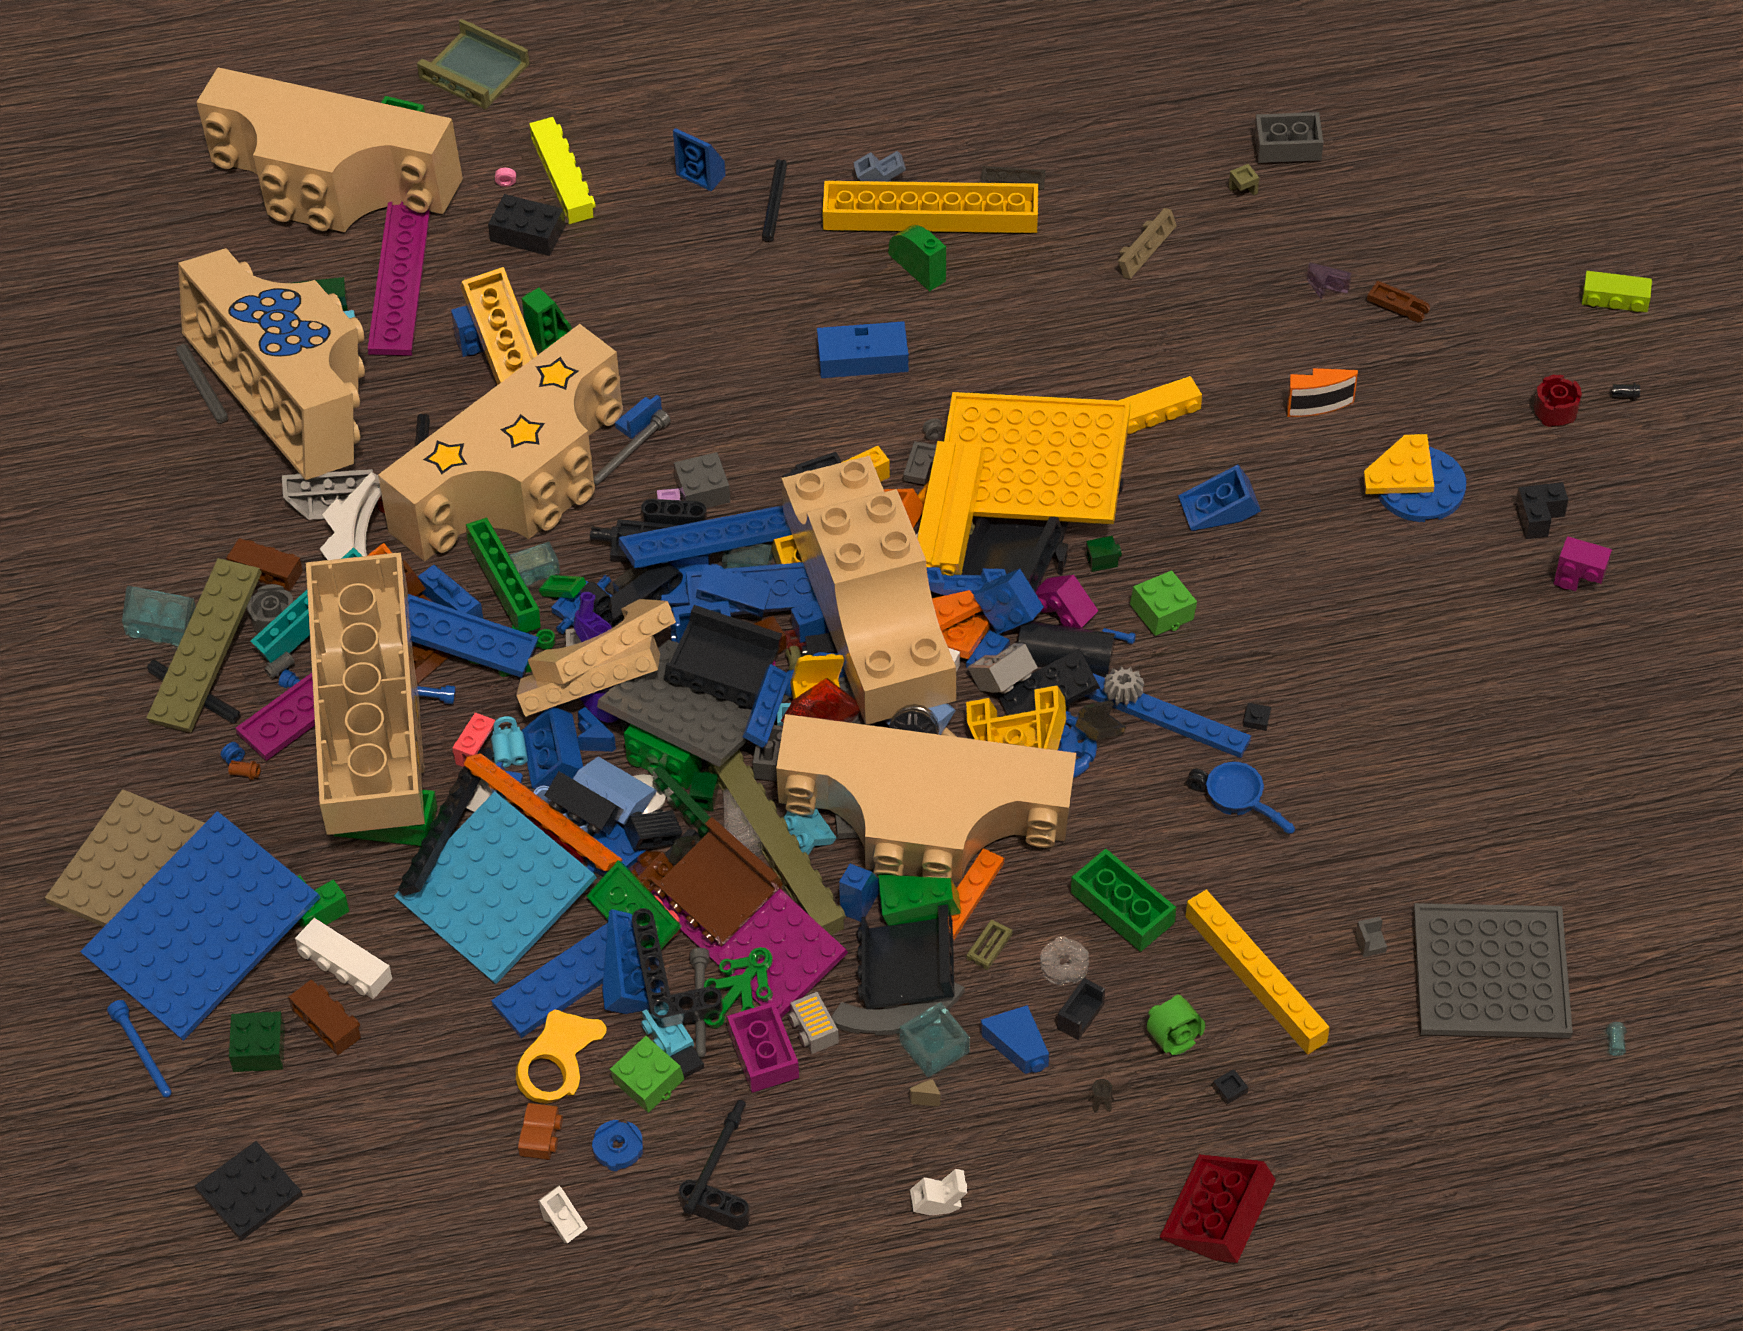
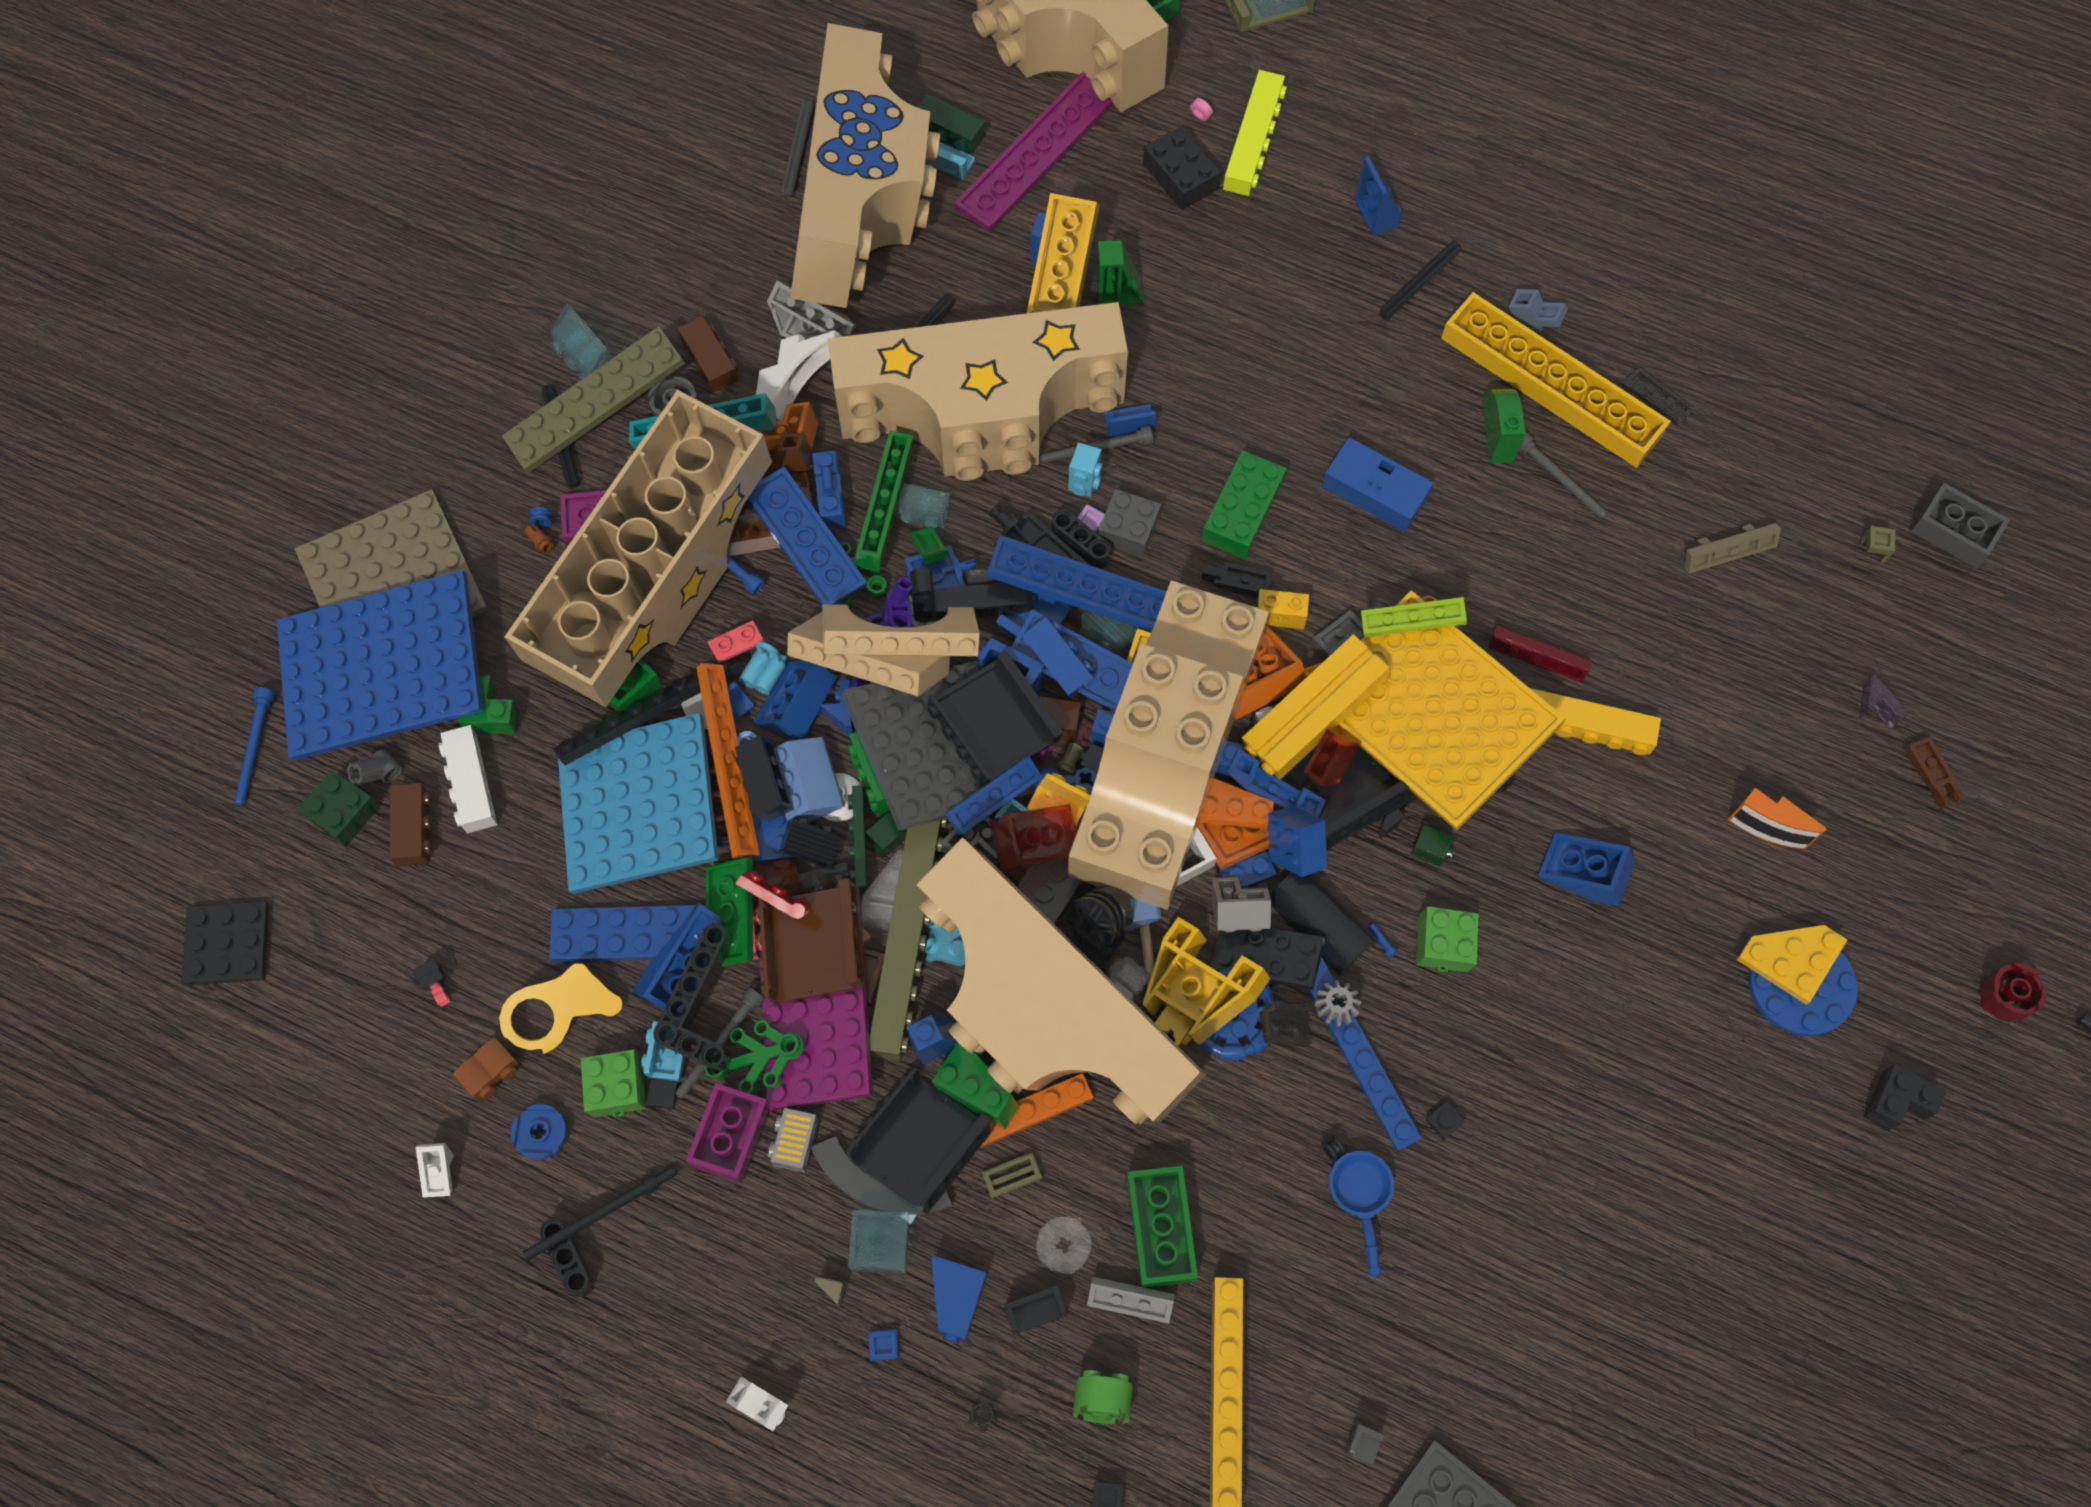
camera: 35 degrees right, 15 degrees up
(262, 995) = (378, 766): none -> dark grey piece
(439, 1101) = (431, 977): none -> black piece
(639, 464) = (1085, 470): none -> medium azure brick
(662, 867) = (773, 894): none -> plate
(776, 420) = (1243, 505): none -> green brick
(970, 405) = (1414, 617): none -> lime plate
(986, 534) = (1332, 756): none -> clear red brick
(992, 269) = (1528, 447): none -> dark grey piece
(993, 1105) = (883, 1345): none -> blue tile
(1067, 599) = (1357, 873): magenta brick -> none
(1077, 387) = (1540, 653): none -> dark red brick
(1140, 960) = (1130, 1300): none -> light grey plate
(1581, 560) = (1896, 1194): magenta brick -> none

